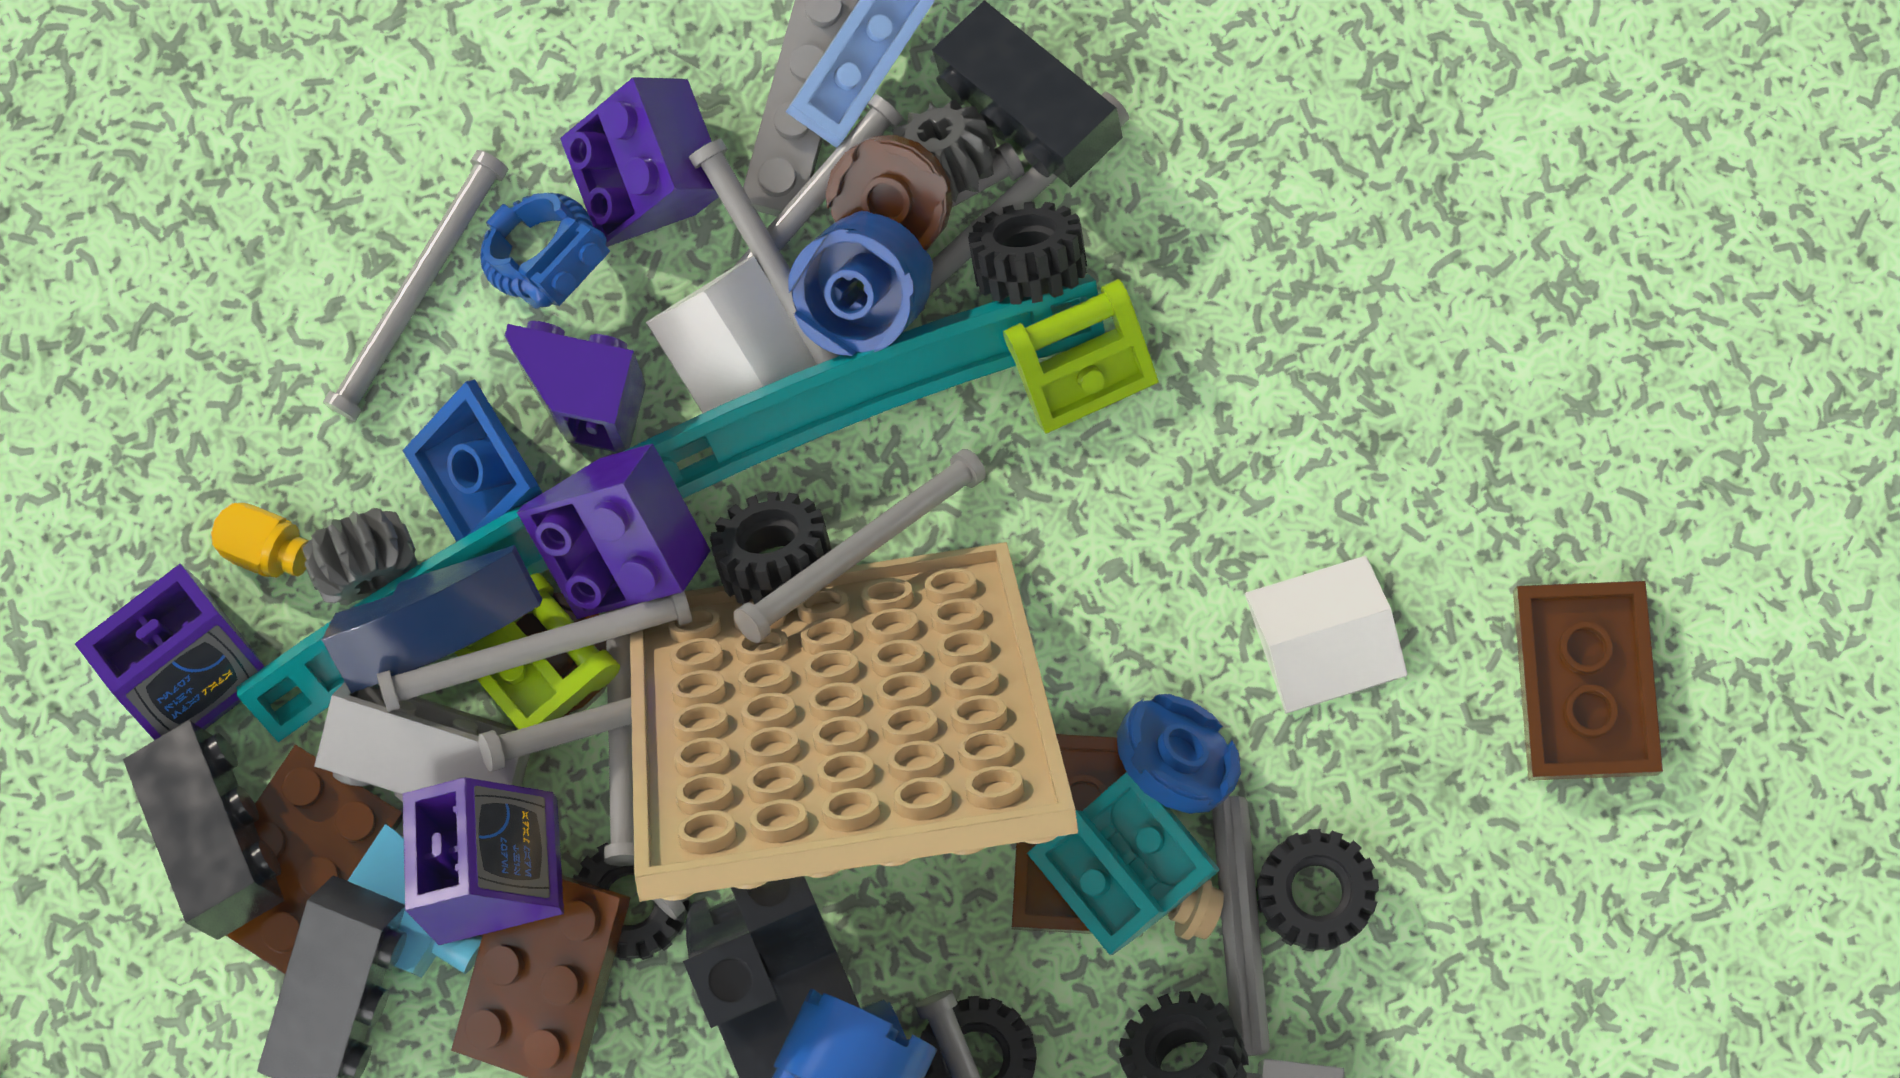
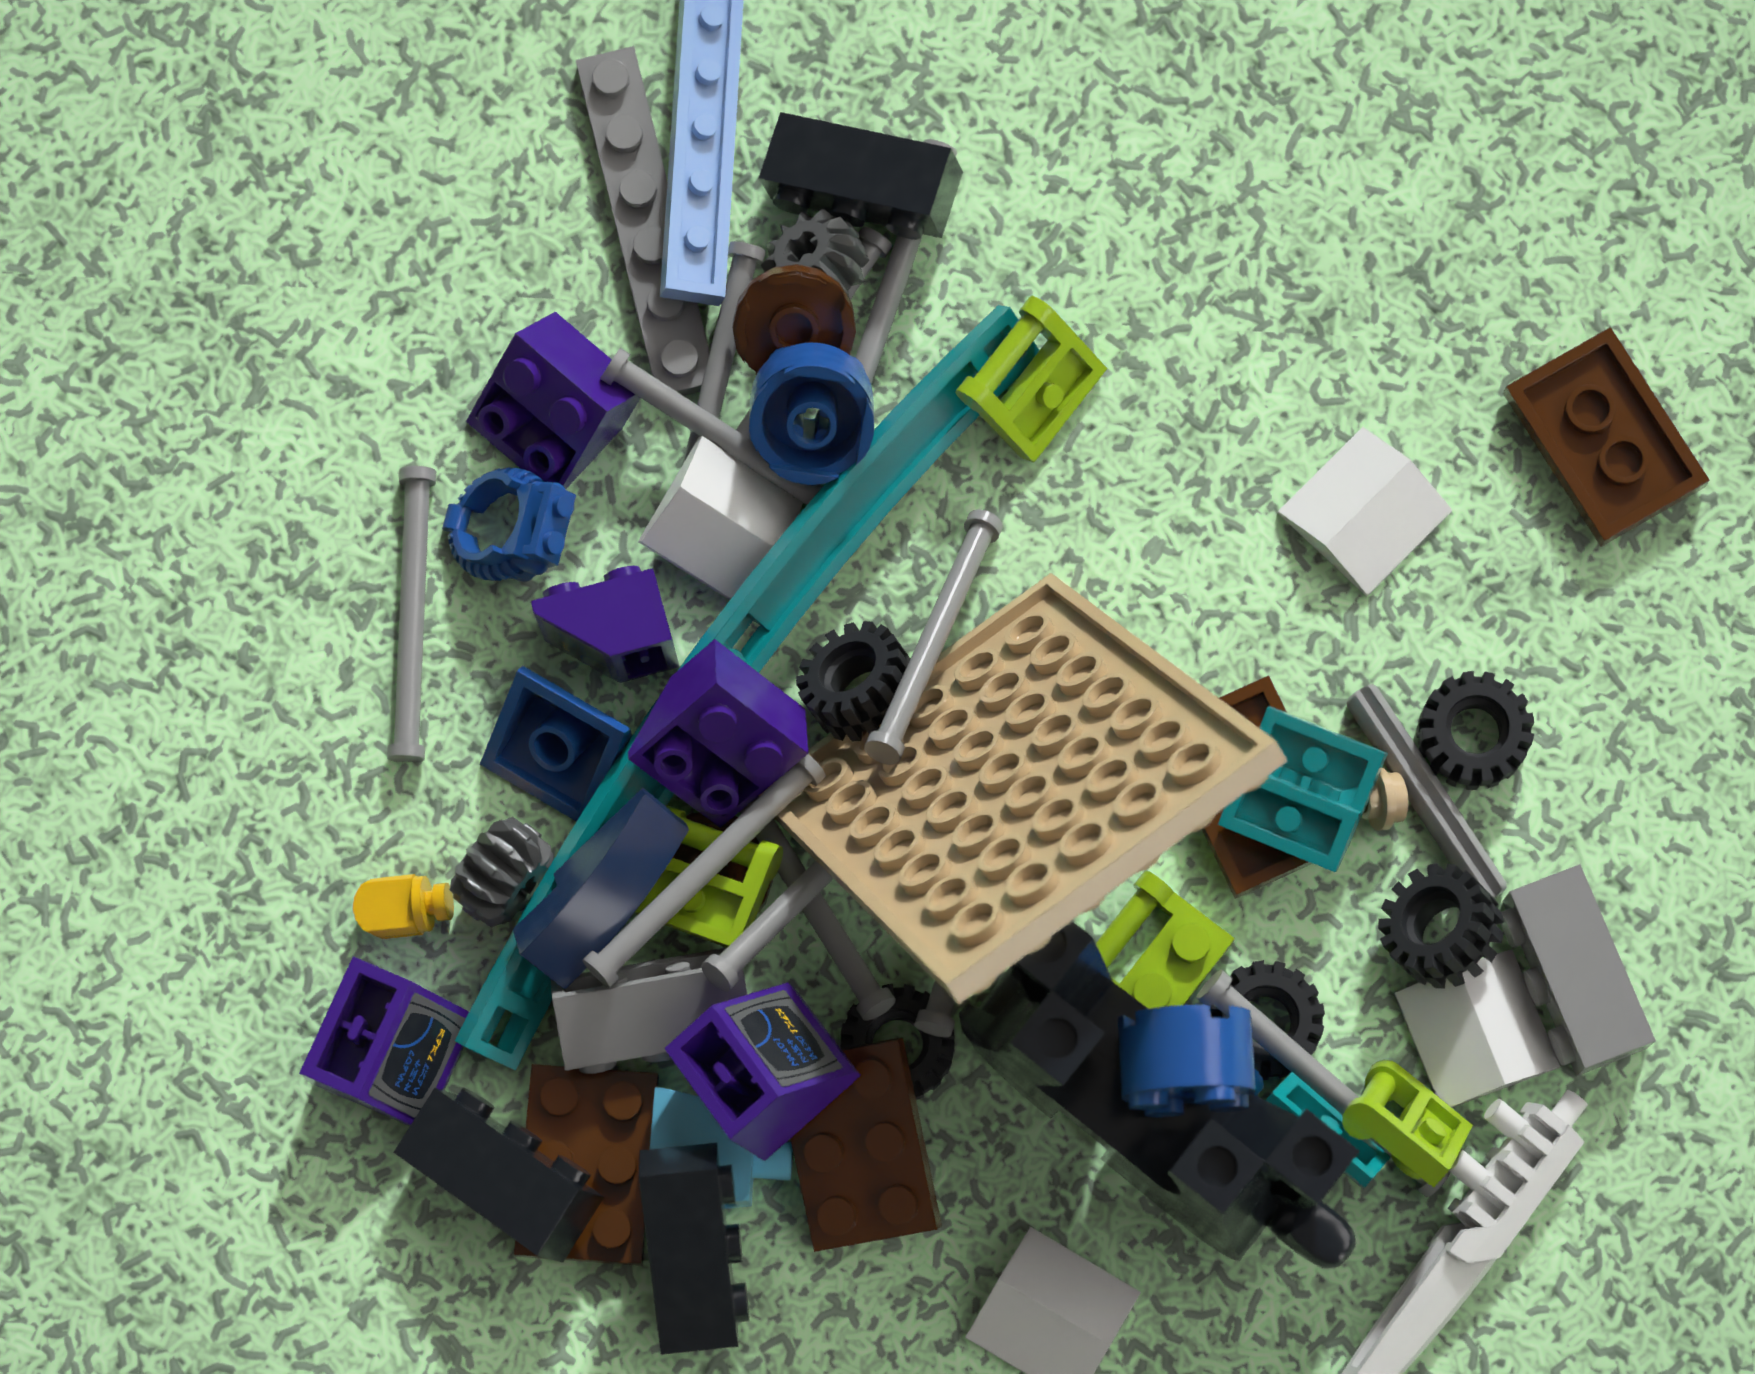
camera: 25 degrees left, 0 degrees up
(916, 960) = (1177, 956): none -> lime plate
(1028, 252) = (938, 312): black tyre -> none
(1178, 754) = (1298, 675): blue tile -> none

